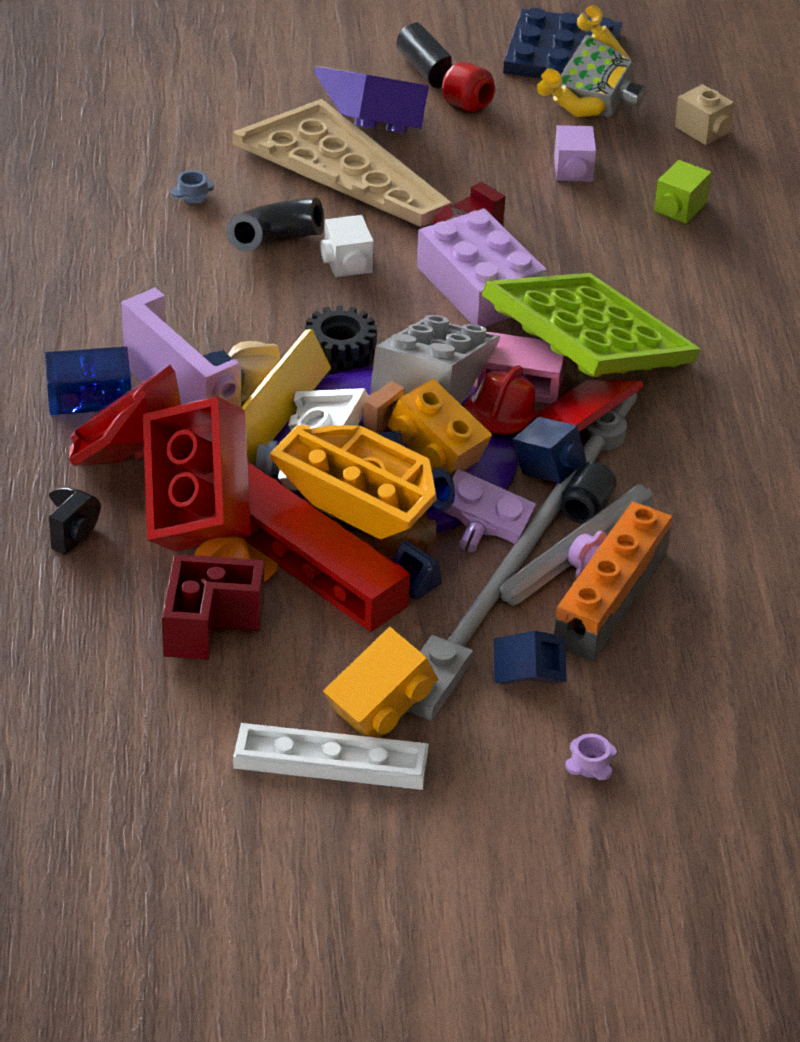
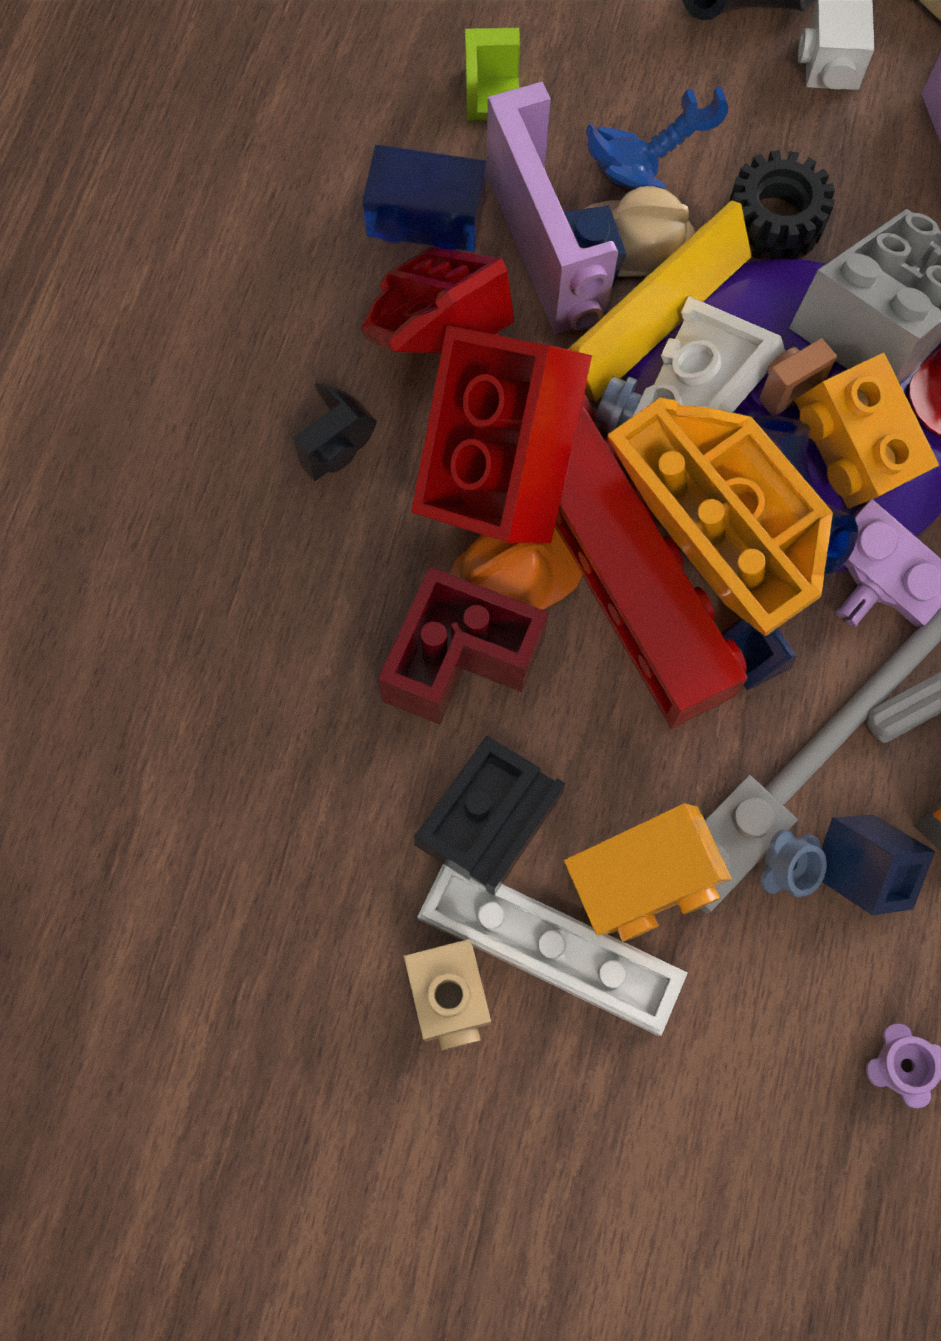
camera: 20 degrees right, 30 degrees up
(103, 303) = (489, 66): none -> lime panel
(228, 332) = (634, 162): none -> blue piece
(262, 690) = (489, 815): none -> black plate
(269, 785) = (448, 994): none -> tan brick
(478, 671) = (793, 864): none -> sand blue plate

